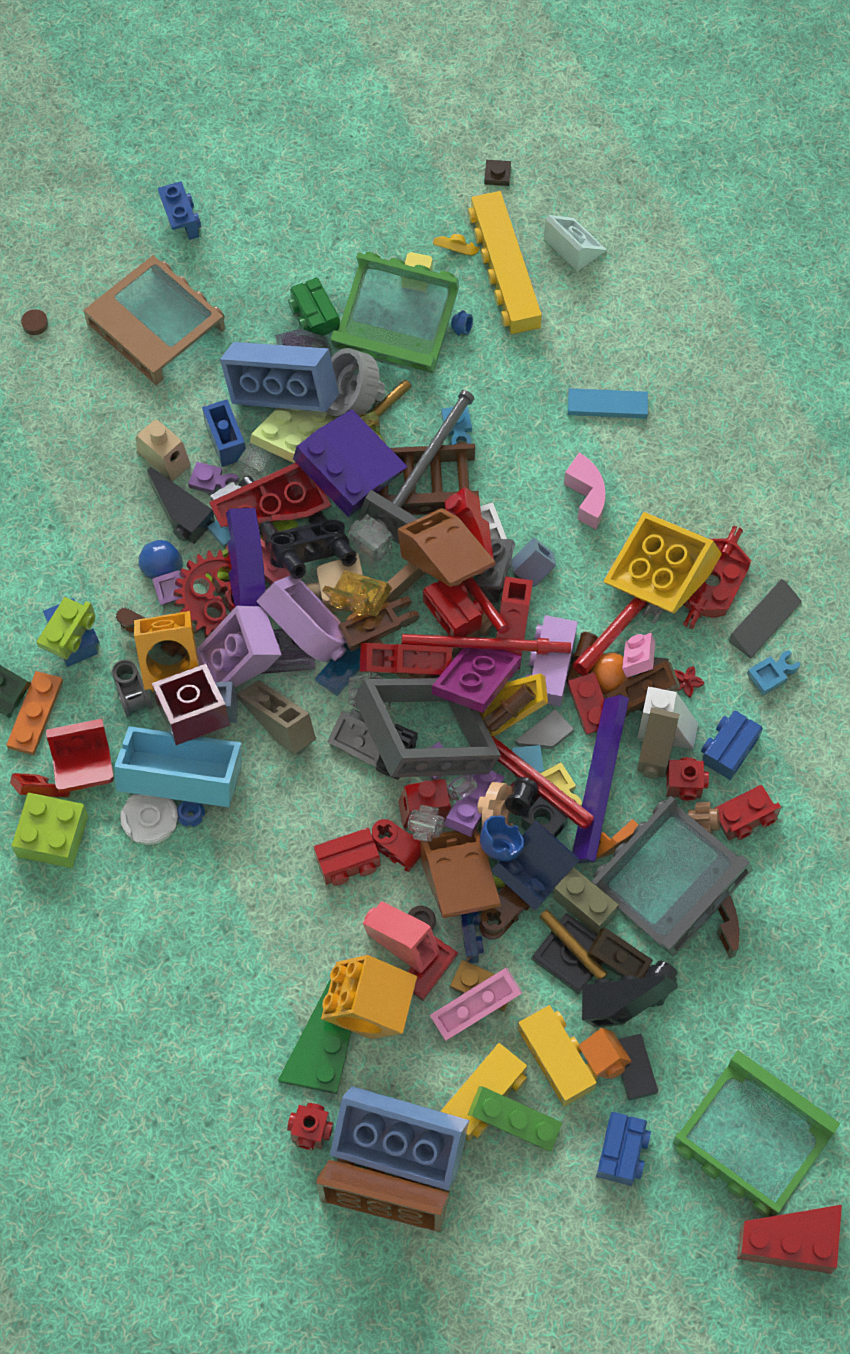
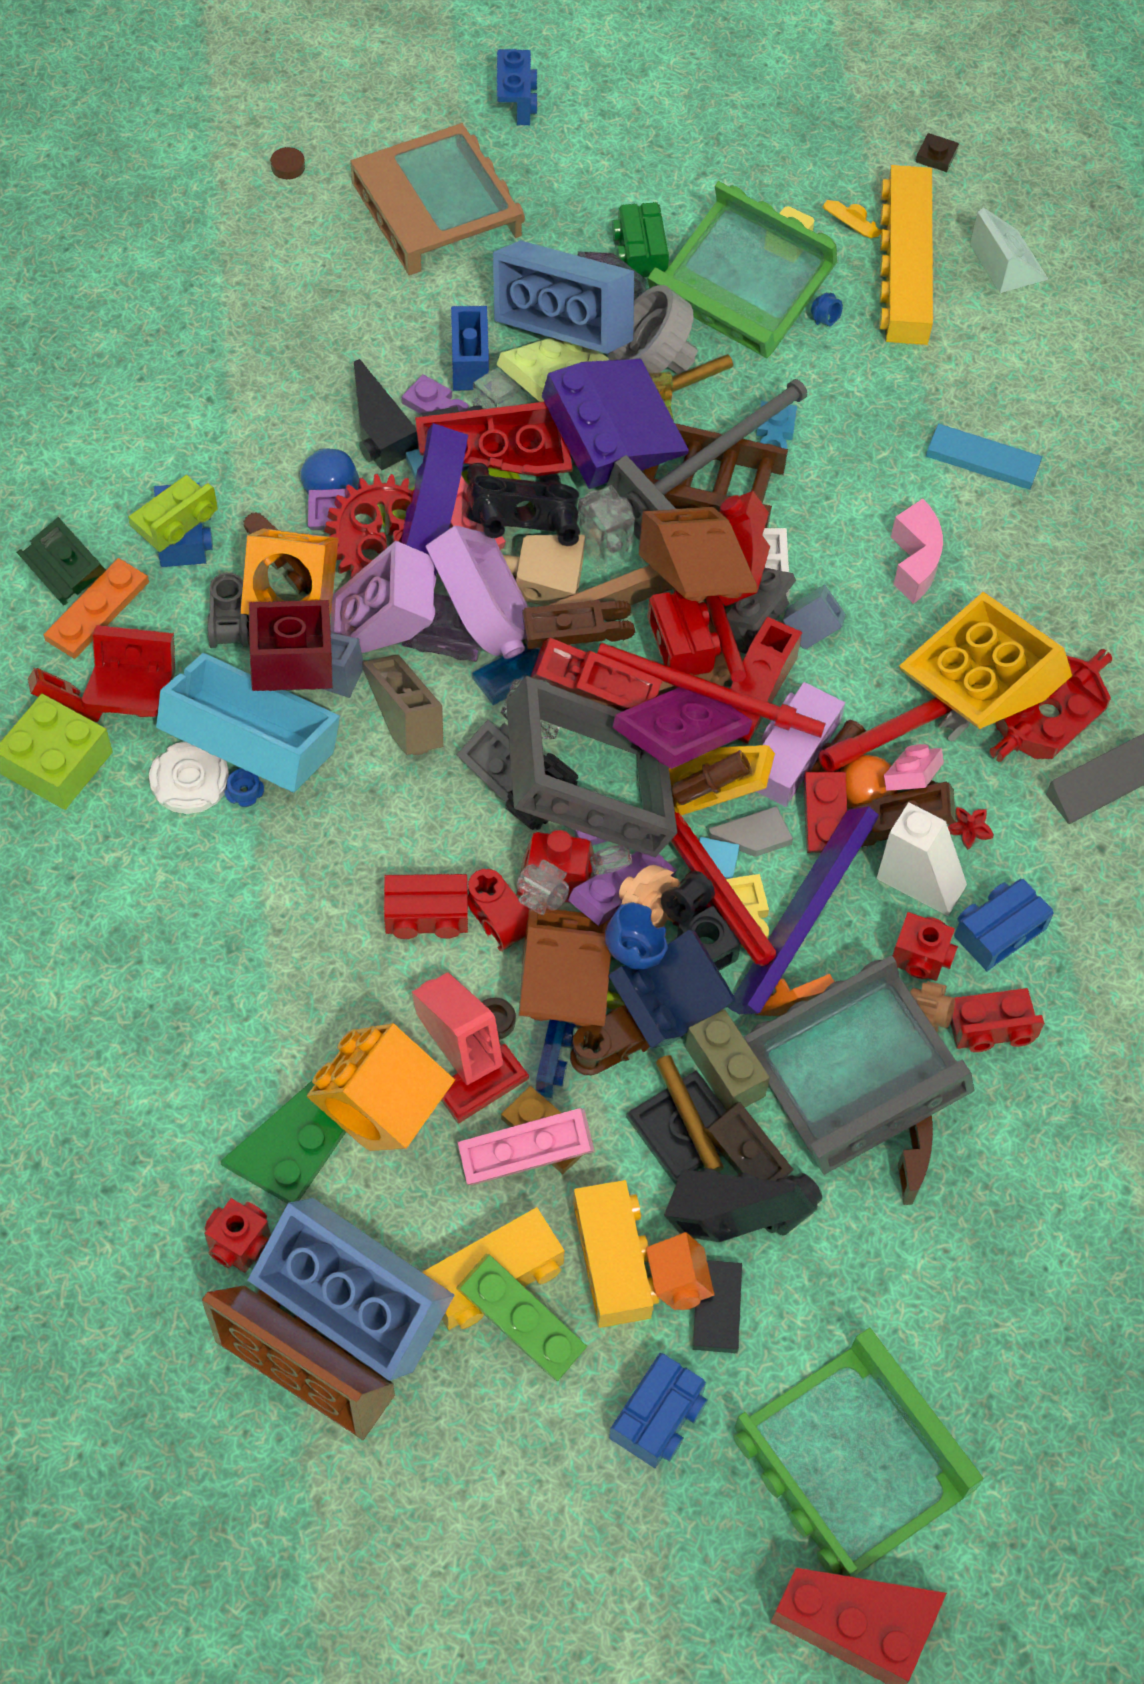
camera: 15 degrees right, 5 degrees down
(157, 445) = (377, 334): tan torso -> none
(358, 593) = (563, 578): clear yellow bracket -> none
(657, 743) = (899, 883): dark tan slope -> none
(771, 674) = (1090, 852): dark azure plate -> none

